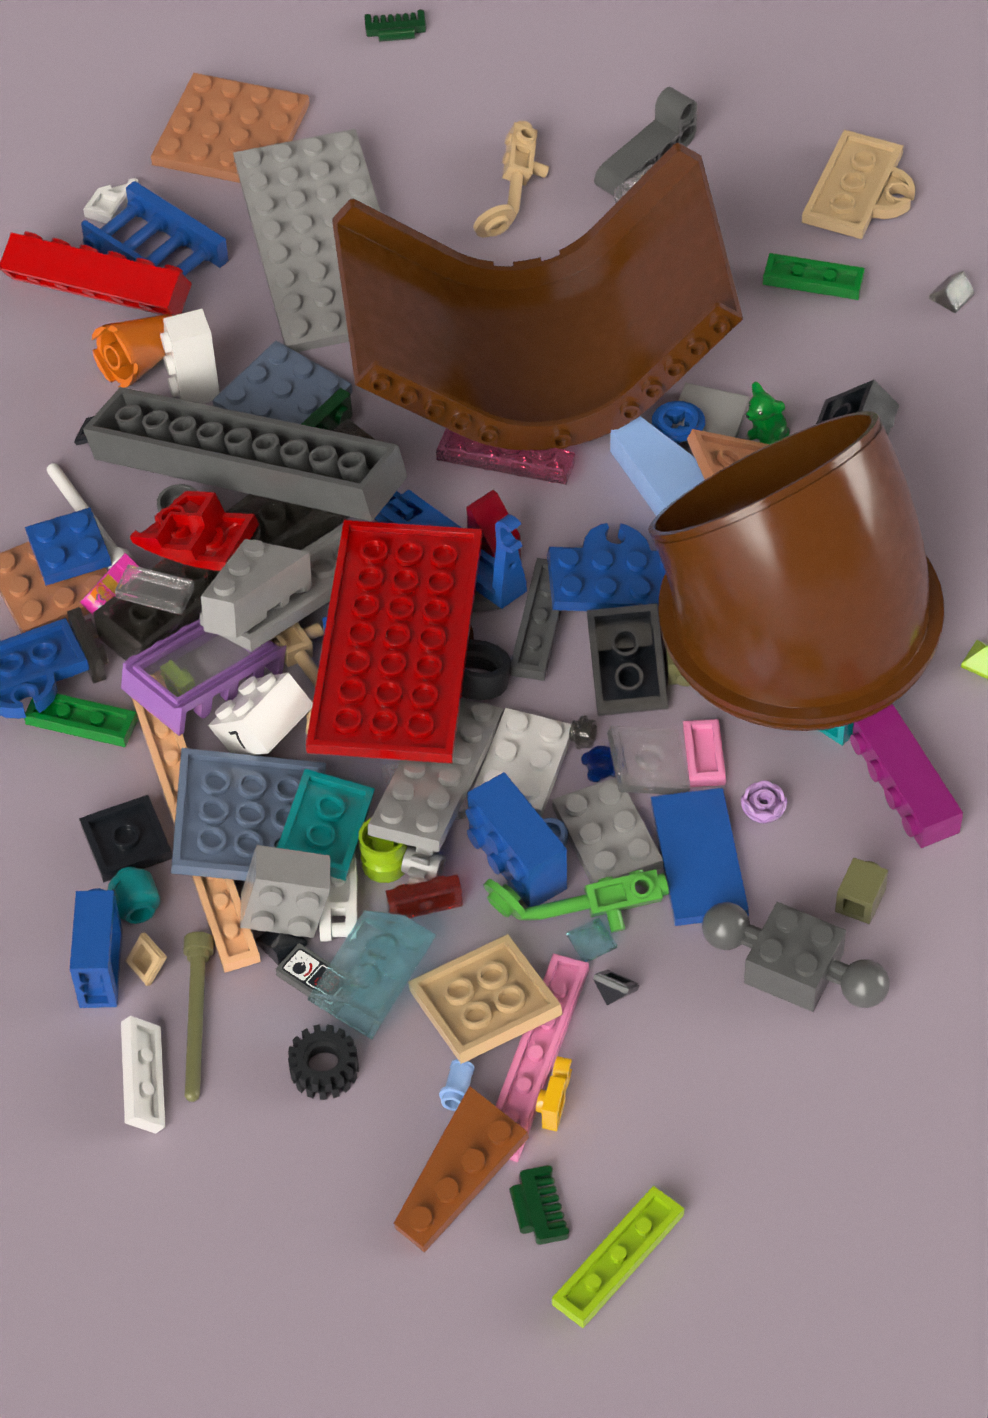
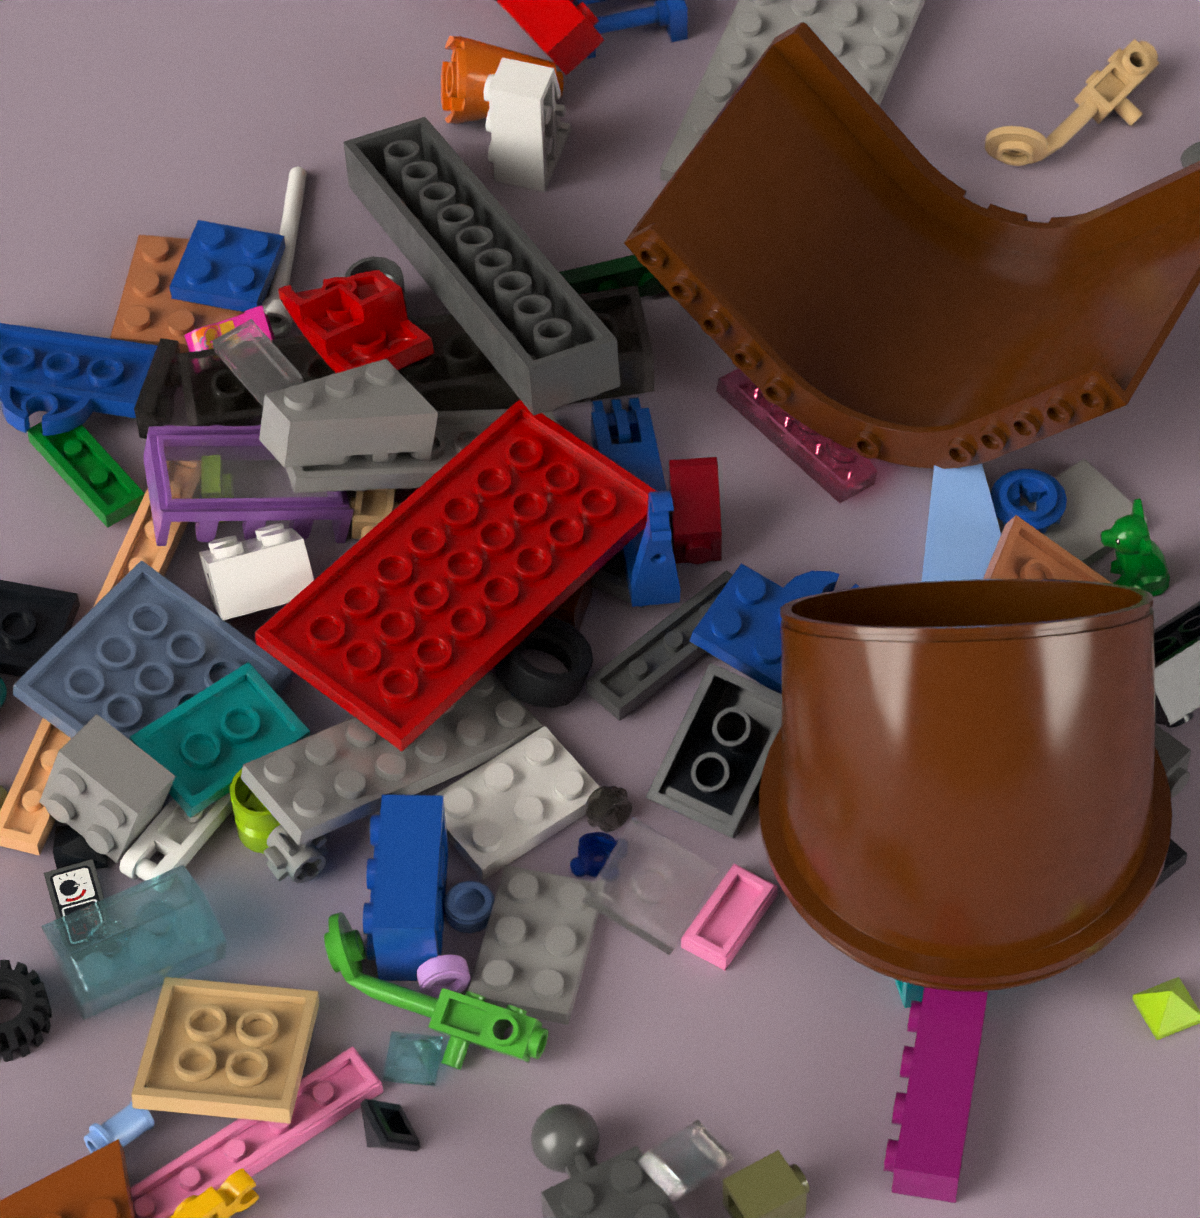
camera: 35 degrees right, 0 degrees up
(281, 386) = (595, 211): sand blue plate -> none
(425, 897) = (265, 892): clear red plate -> none
(573, 881) = (443, 972): none -> lavender tile
(697, 853) = (618, 1034): blue tile -> none
(763, 792) = (743, 1004): lavender plate -> none
(806, 895) = (685, 1160): none -> clear tile

